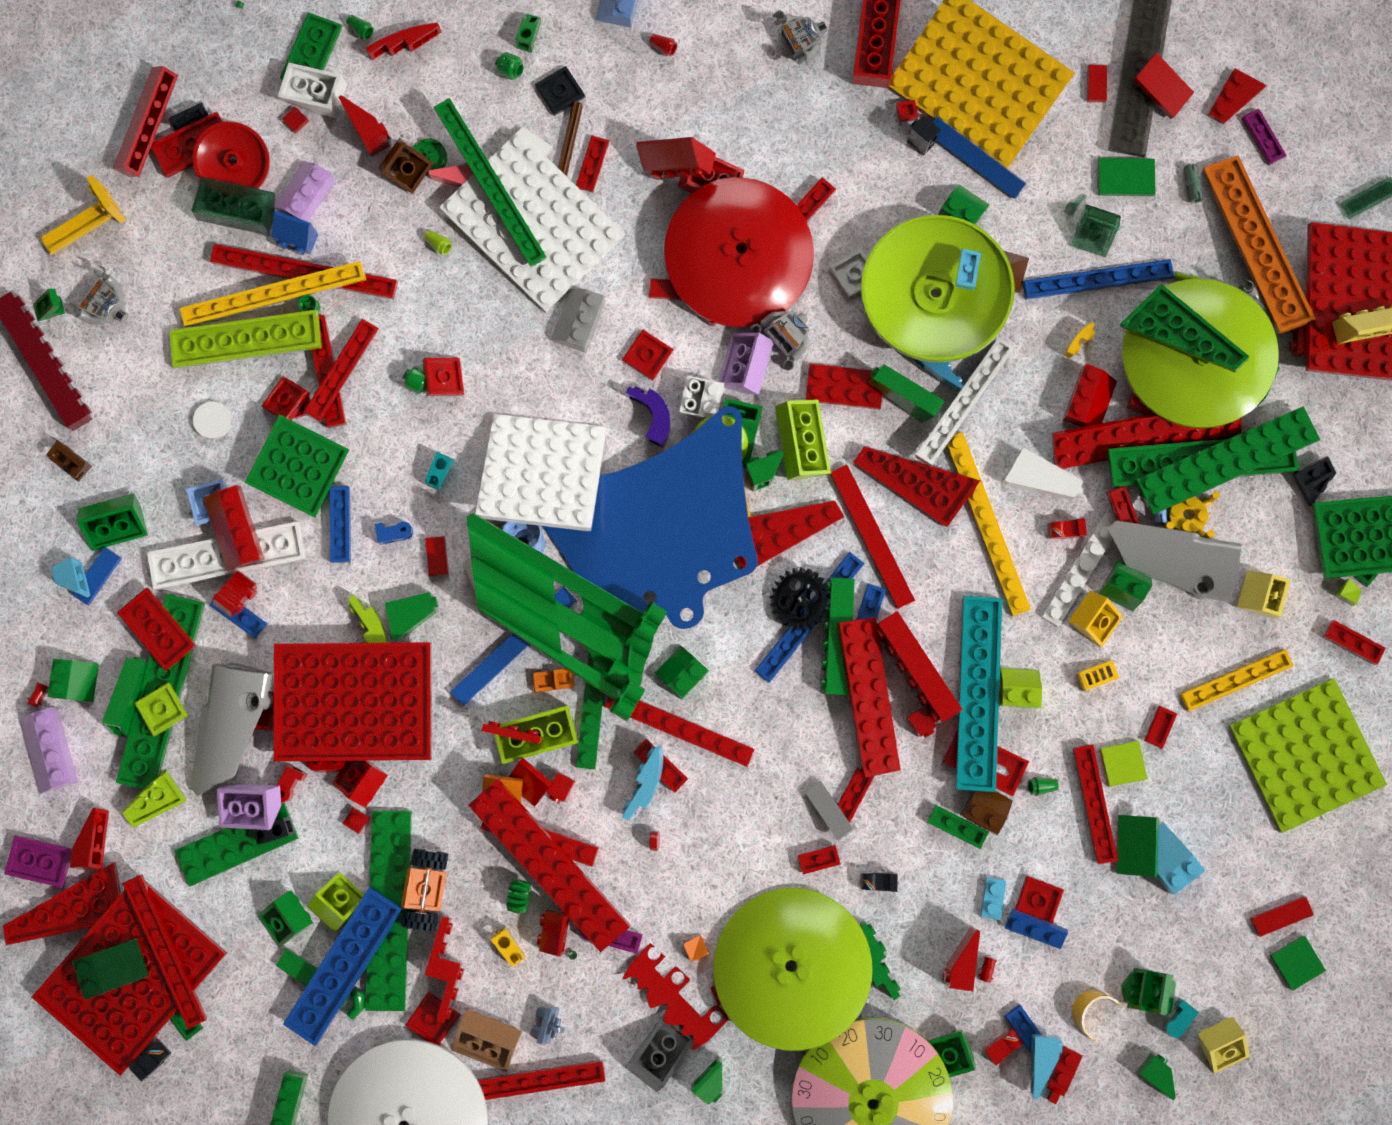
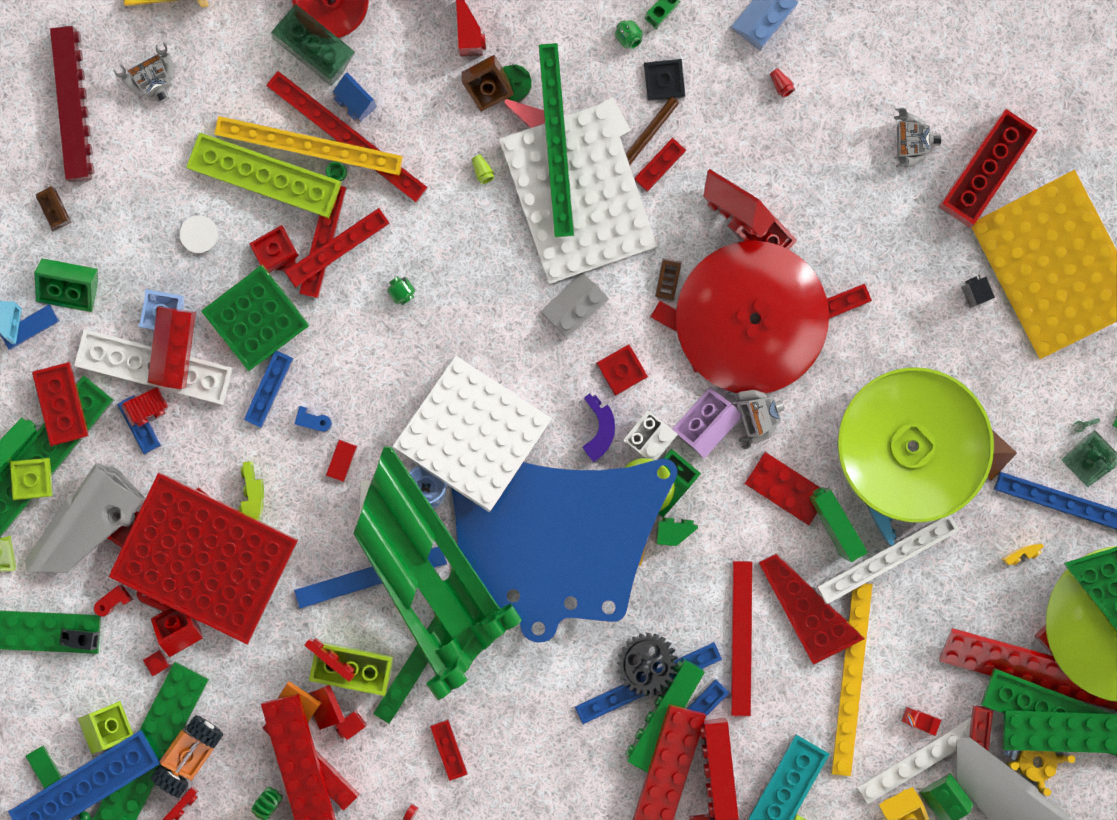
camera: 25 degrees right, 5 degrees up
(48, 305) = (100, 54): green slope -> none
(248, 806) = (67, 605): lavender slope -> none
(285, 918) = (53, 719): green slope -> none
(305, 191) = (382, 61): lavender slope -> none
(409, 613) = (292, 501): green slope -> none
(439, 471) = (381, 383): teal leg -> none
(443, 376) = (426, 299): red tile -> none
(552, 680) = (389, 625): orange slope -> none
(643, 242) = (677, 264): none -> reddish brown slope
(649, 776) = (429, 761): medium azure slope -> none
(681, 672) = (508, 676): green slope -> none
(690, 732) = (491, 735): red plate -> none
(784, 529) = (665, 592): red wing -> none
(802, 439) = (723, 519): lime slope -> none
(849, 272) = (845, 385): white tile -> none
(907, 111) = (975, 259): red plate -> none
(964, 205) = (981, 376): green slope -> none
(968, 269) = (951, 442): medium azure plate -> none
(979, 159) = (1018, 337): blue tile -> none
(1041, 476) = (921, 659): white slope -> none
(1090, 397) = (1004, 611): red slope -> none

